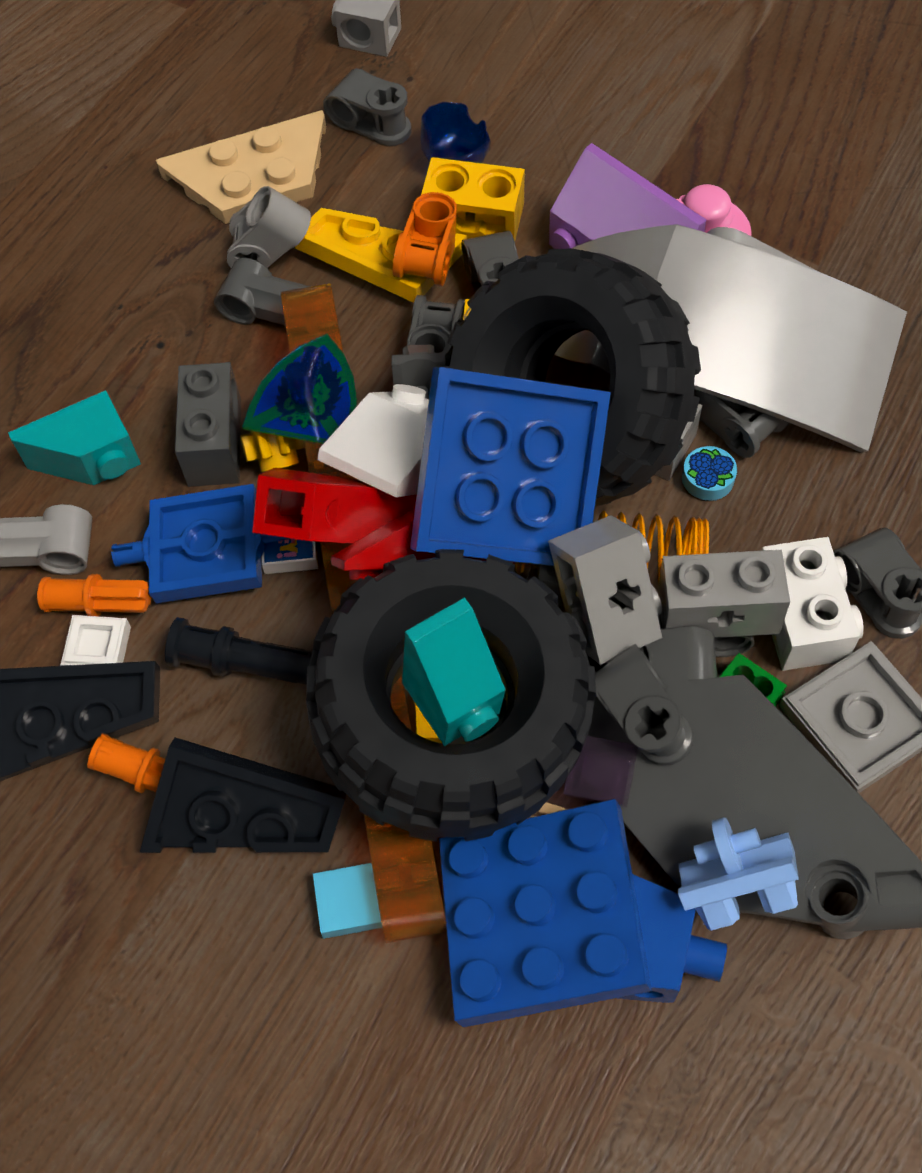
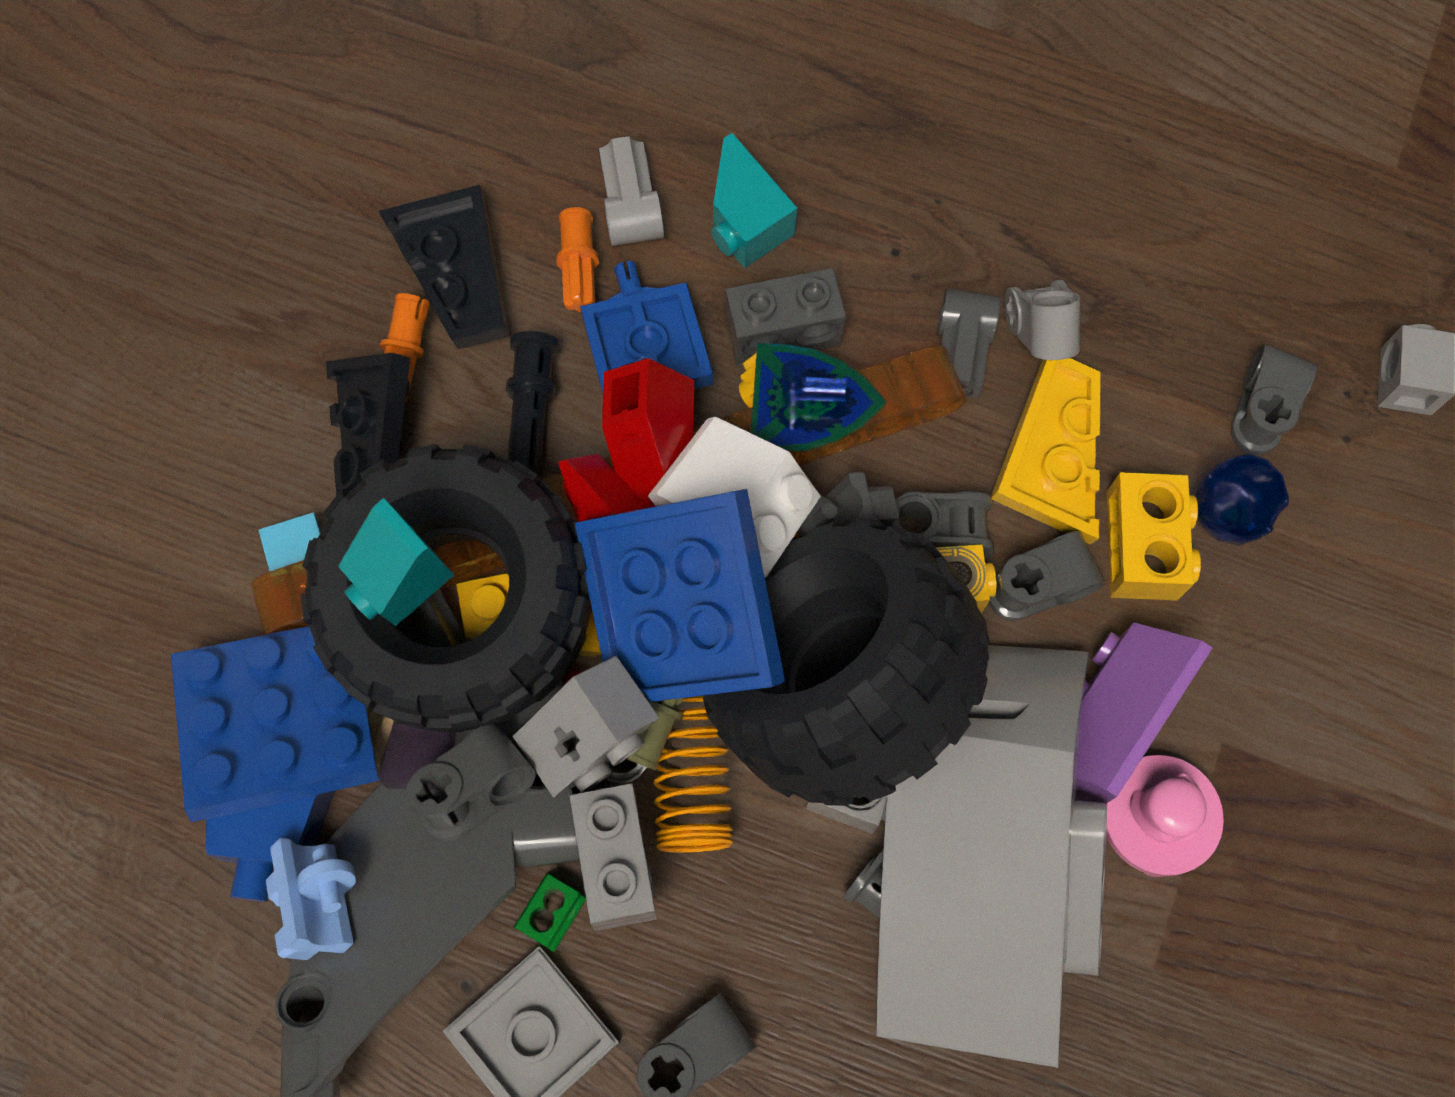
camera: 75 degrees right, 10 degrees up
(96, 640) = (530, 276): white tile -> none
(234, 169) = (1156, 293): tan wing -> none
(427, 239) = (1043, 490): orange piece -> none
(709, 473) = (815, 850): tile -> none
(819, 620) = (651, 966): white brick -> none

